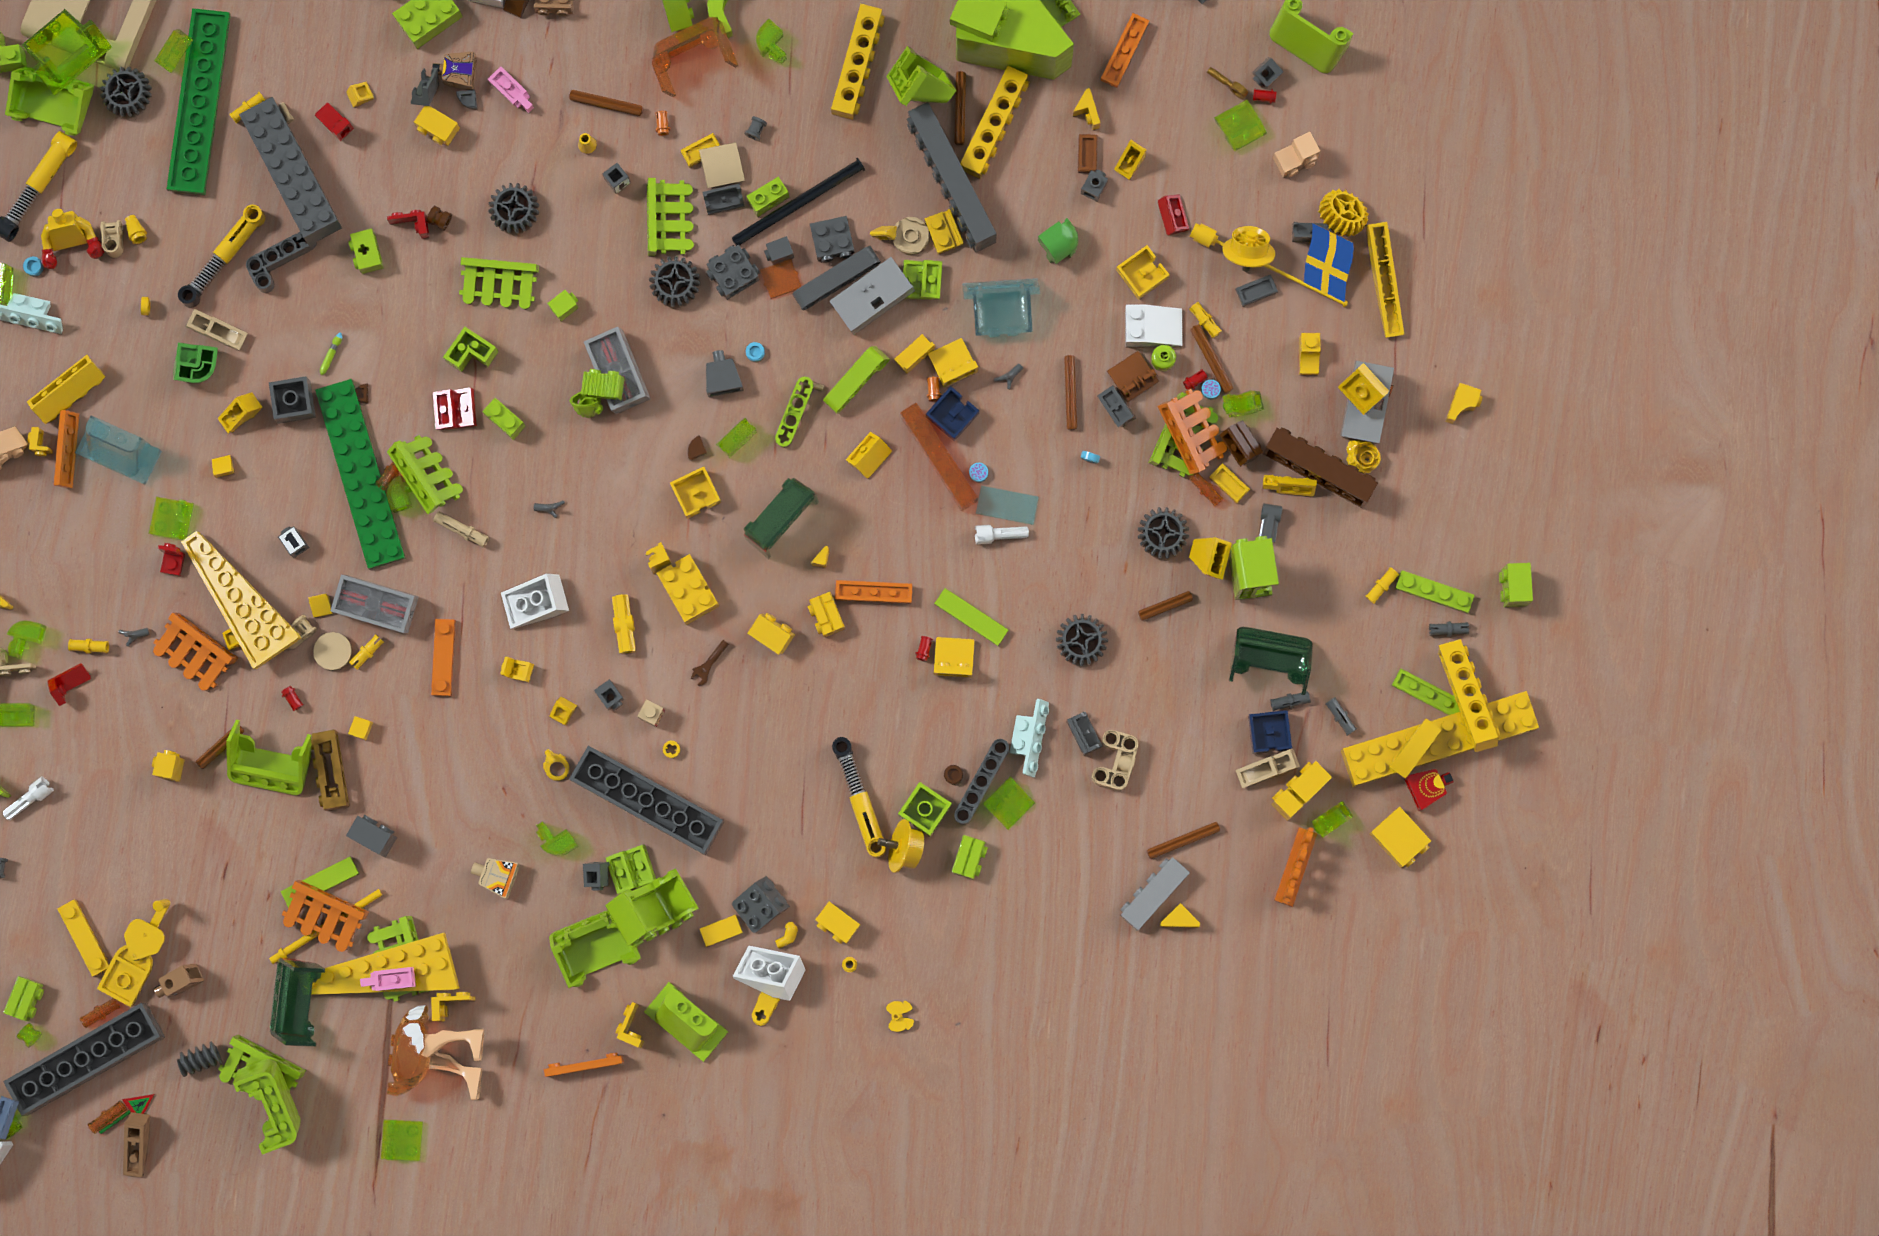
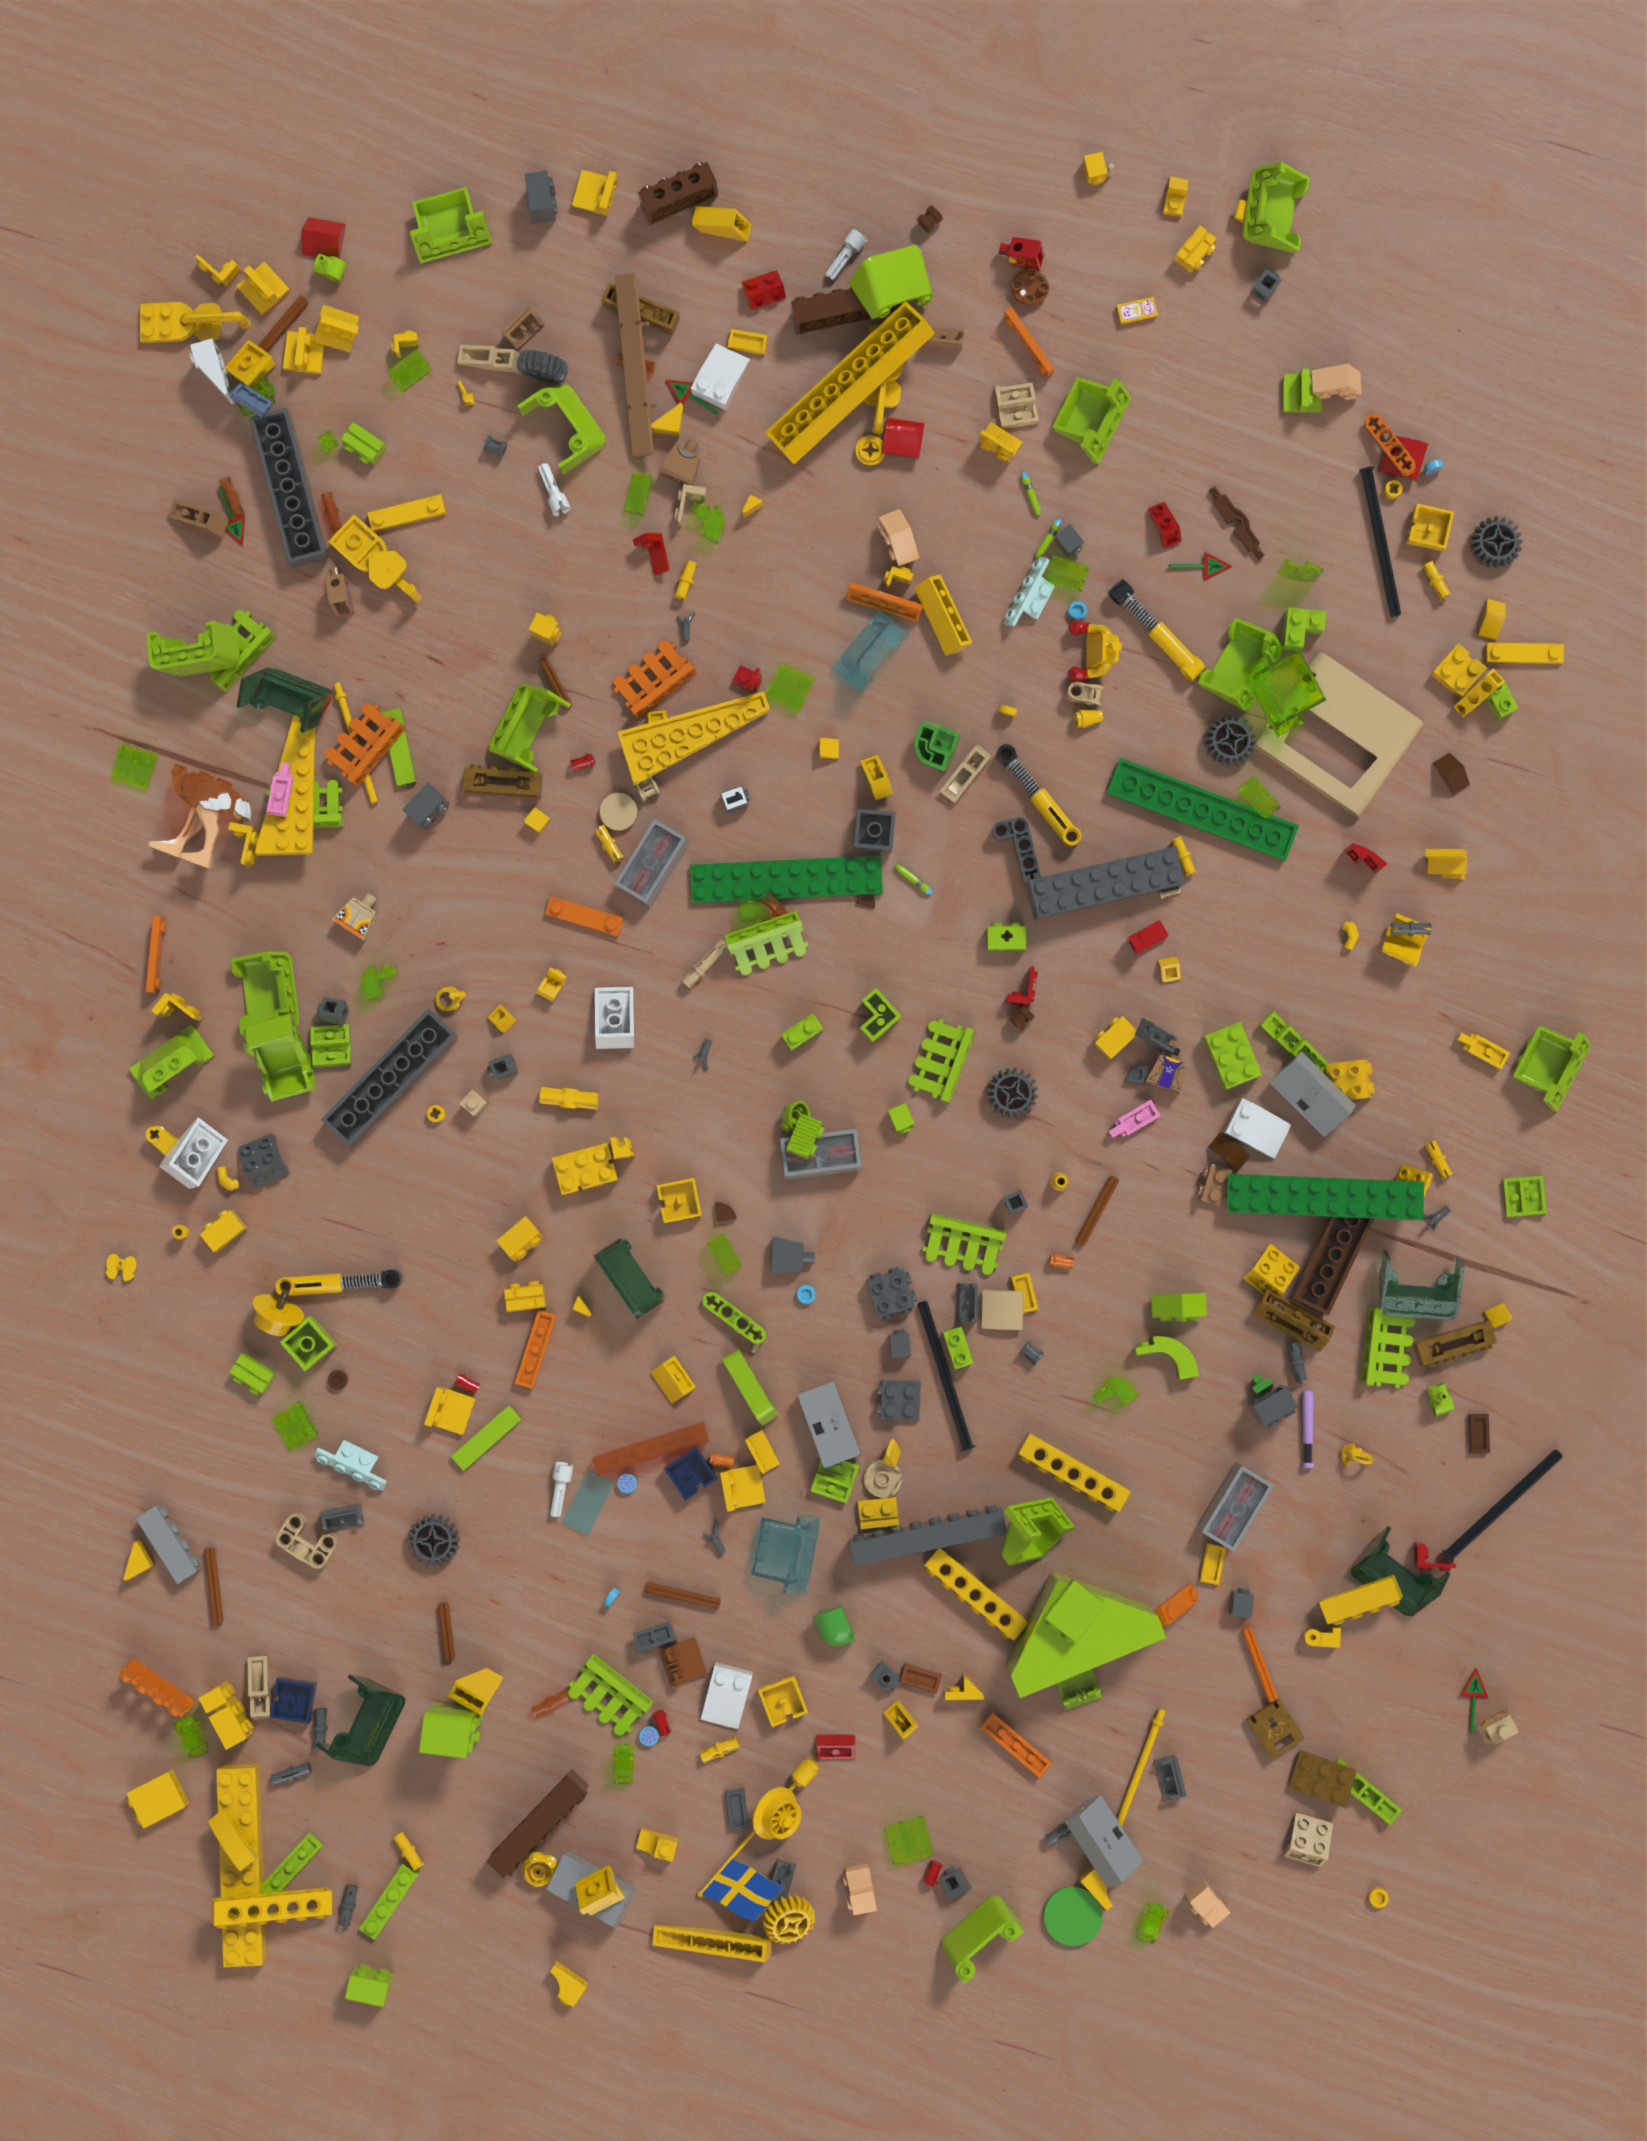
camera: 105 degrees right, 5 degrees up
(199, 1059) = (260, 594): dark grey piece -> none
(320, 605) = (666, 810): yellow slope -> none
(454, 409) = (826, 986): slope -> none
(667, 281) = (880, 1227): dark grey gear -> none
(703, 670) = (504, 1164): reddish brown piece -> none
(708, 31) = (1140, 1330): clear orange windscreen -> none
(721, 930) = (248, 1117): yellow tile -> none
(780, 278) = (873, 1338): clear orange piece -> none
(836, 278) = (858, 1394): dark grey beam -> none
(960, 95) = (999, 1562): dark orange axle -> none
(989, 775) = (331, 1407): dark grey beam -> none
(1163, 364) = (695, 1692): lime head -> none
(1171, 533) = (525, 1651): dark grey gear -> none
(1183, 435) = (608, 1696): orange fence -> none
(1211, 358) = (679, 1745): dark orange axle -> none
(1229, 483) = (550, 1728): yellow tile -> none
(1235, 87) = (948, 1845): pearl gold piece -> none
(1241, 443) = (584, 1751): reddish brown brick -> none
(1270, 518) = (505, 1760): dark grey piece -> none
(1290, 485) = (531, 1786): yellow hinge -> none
(1427, 787) = (197, 1840): red torso -> none

